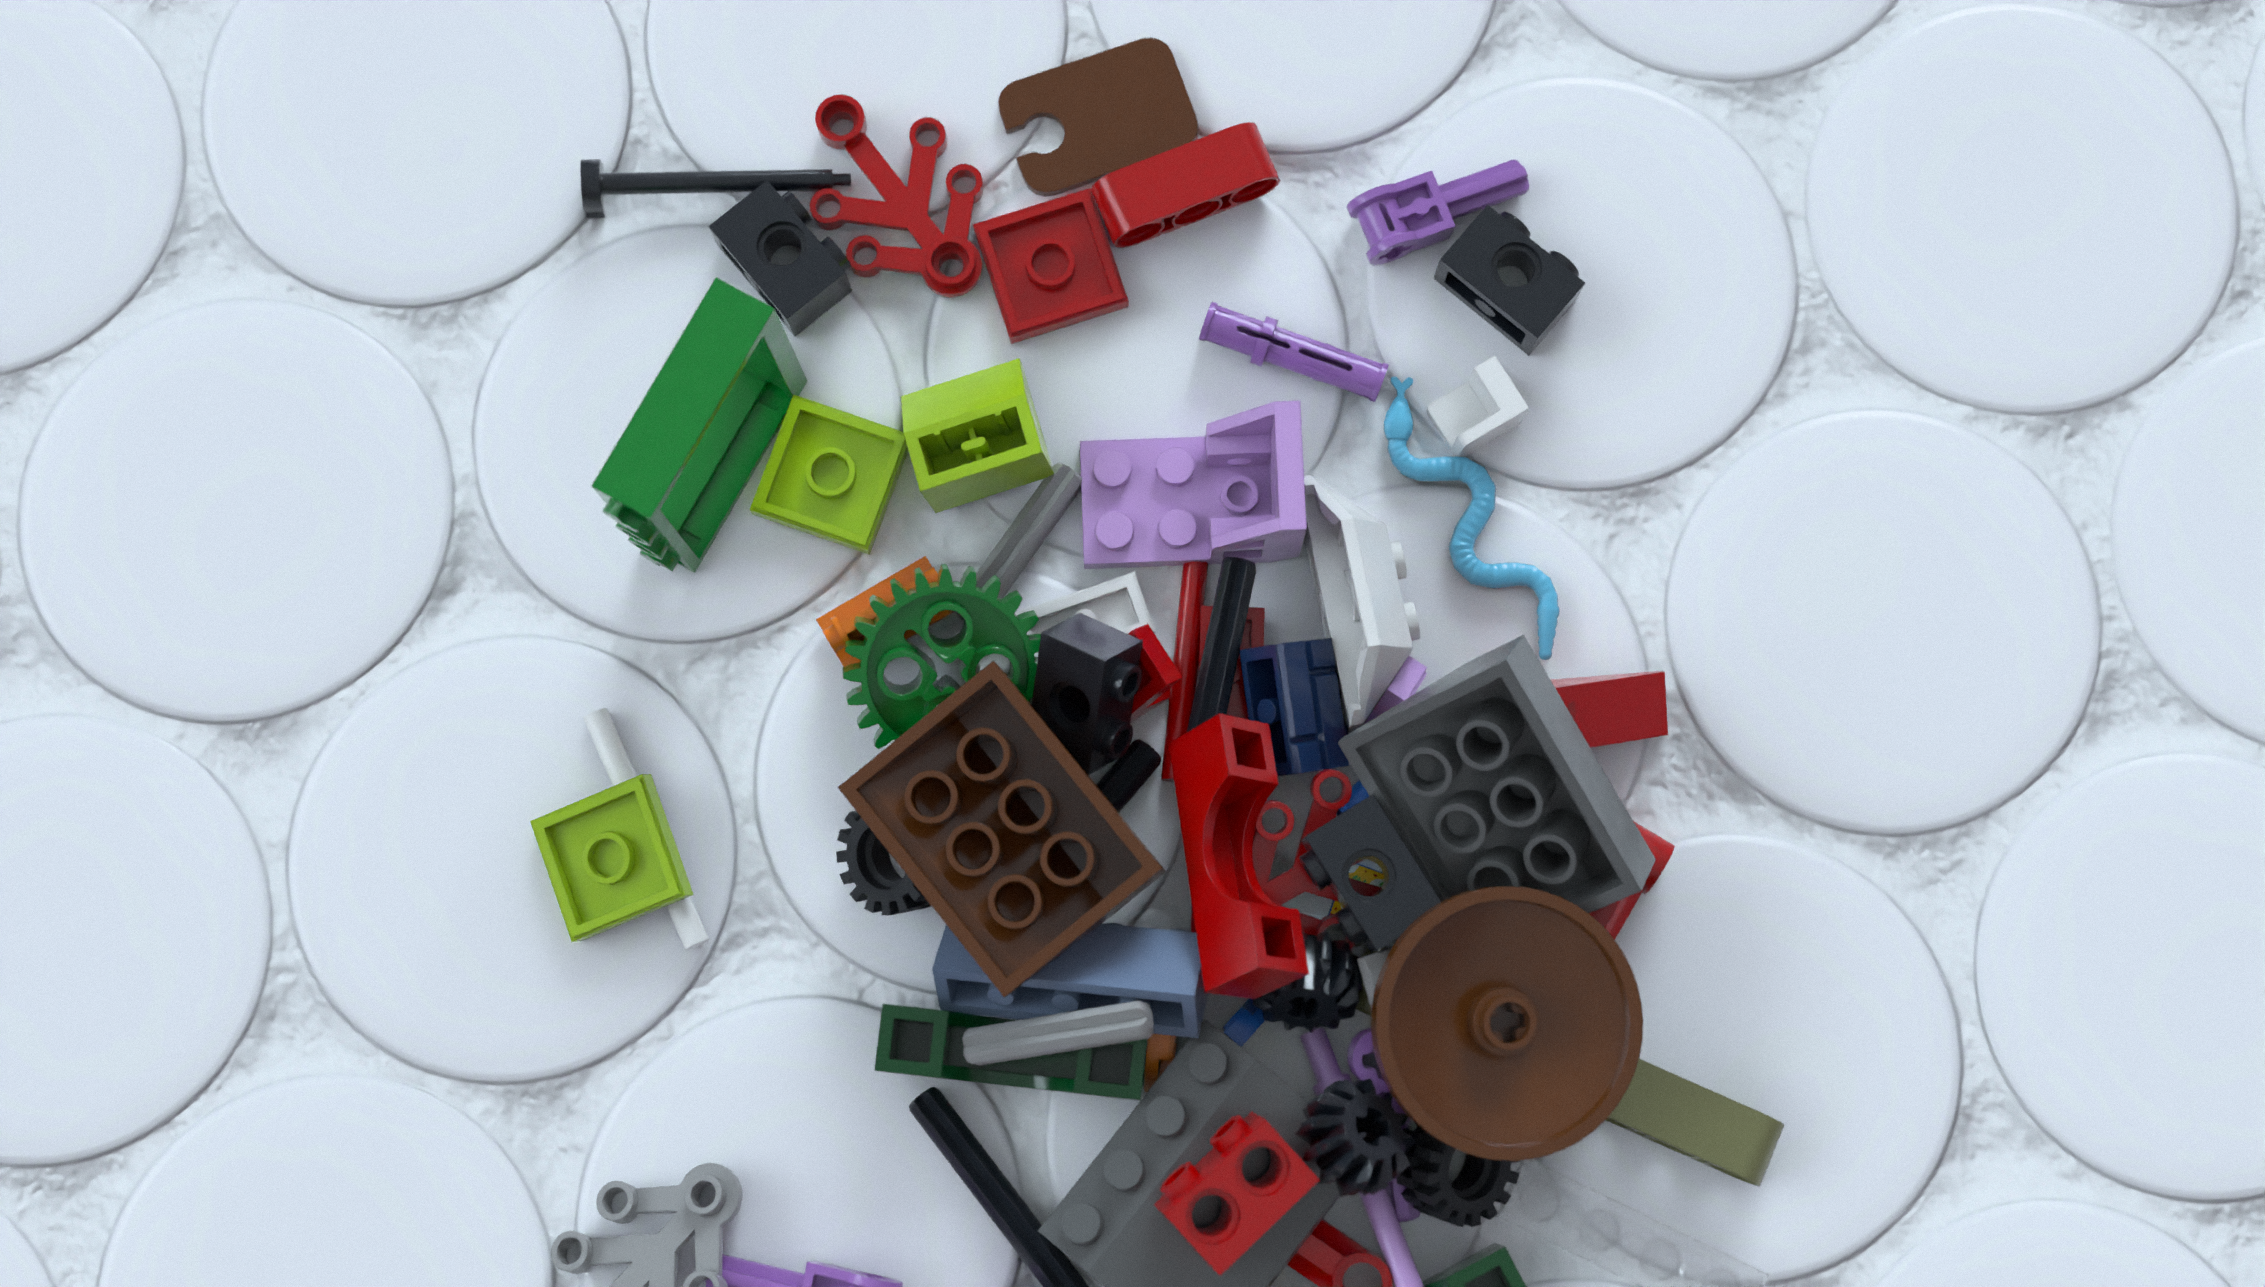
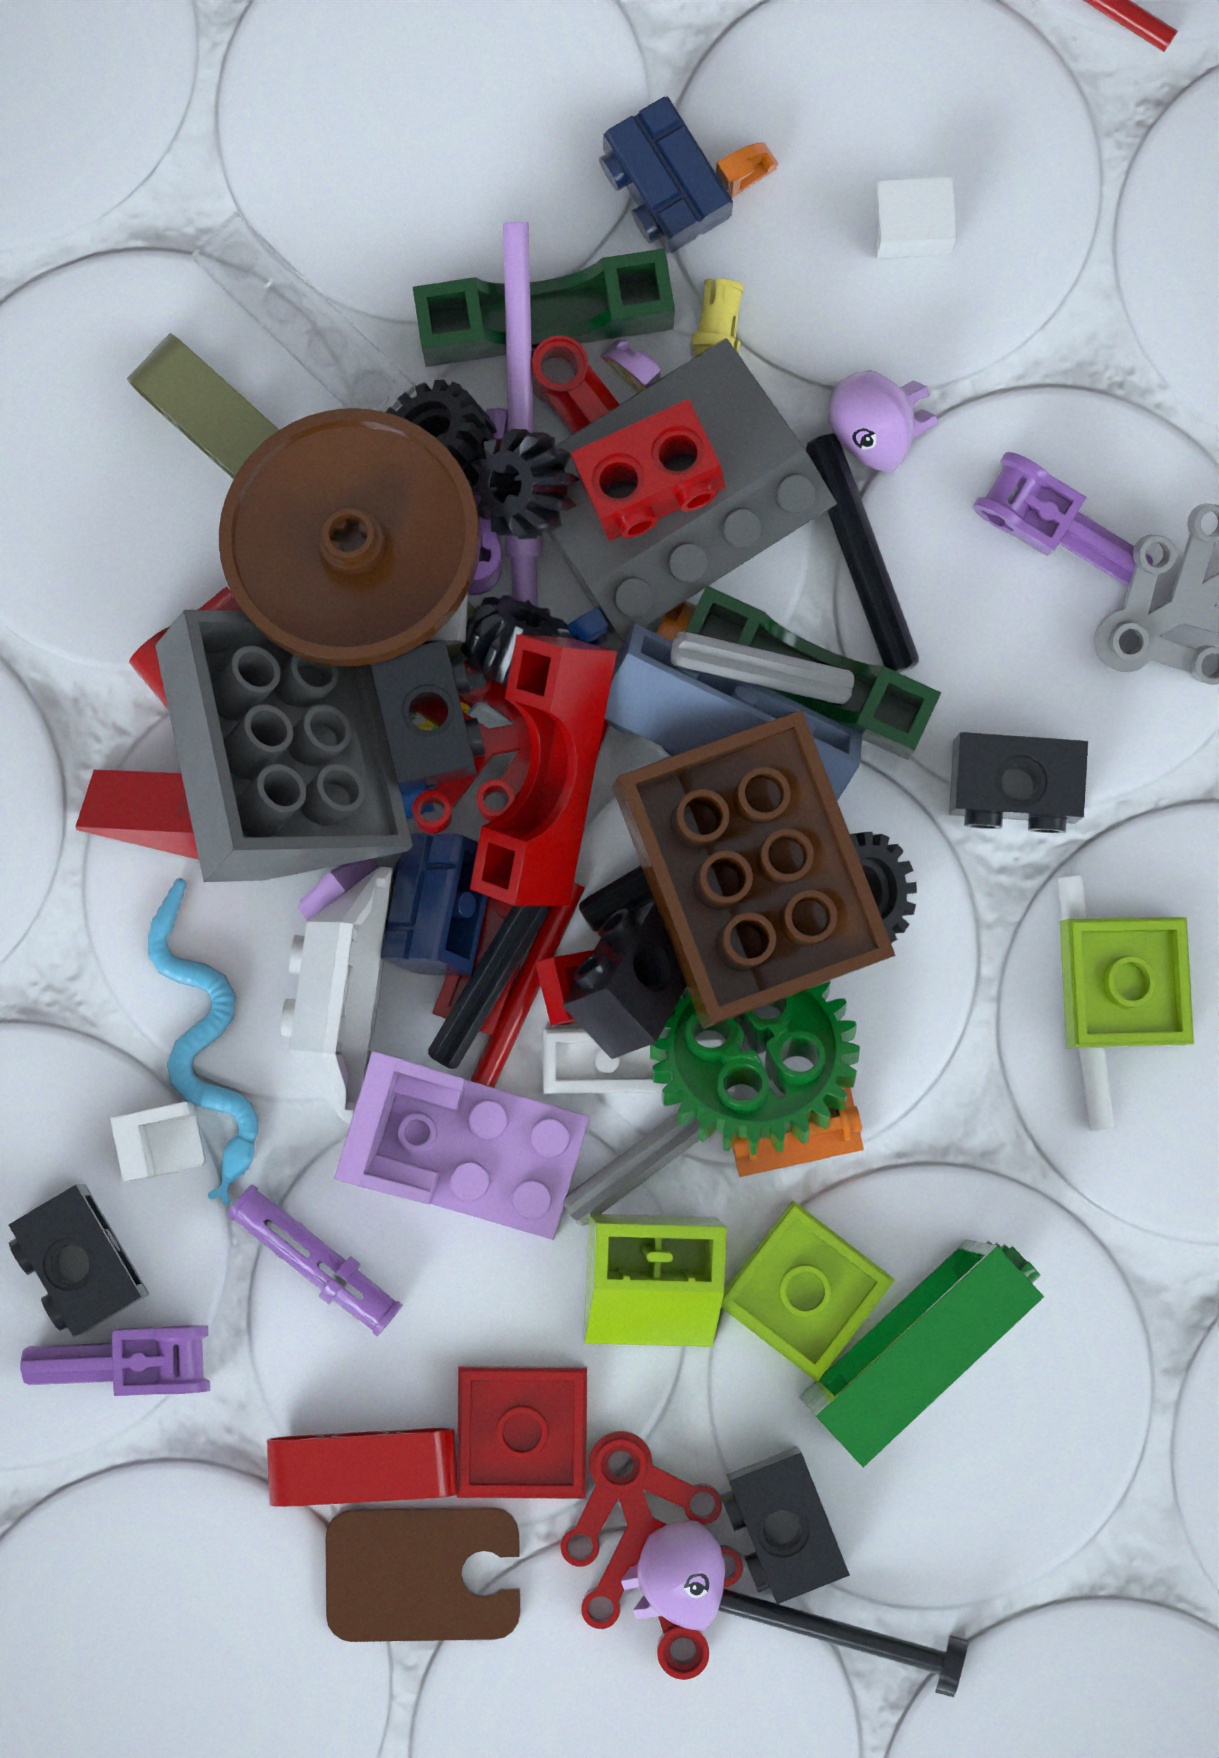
camera: 165 degrees left, 5 degrees up
(733, 1025) = (1053, 765): none -> black brick
(864, 177) = (679, 1575): none -> lavender piece

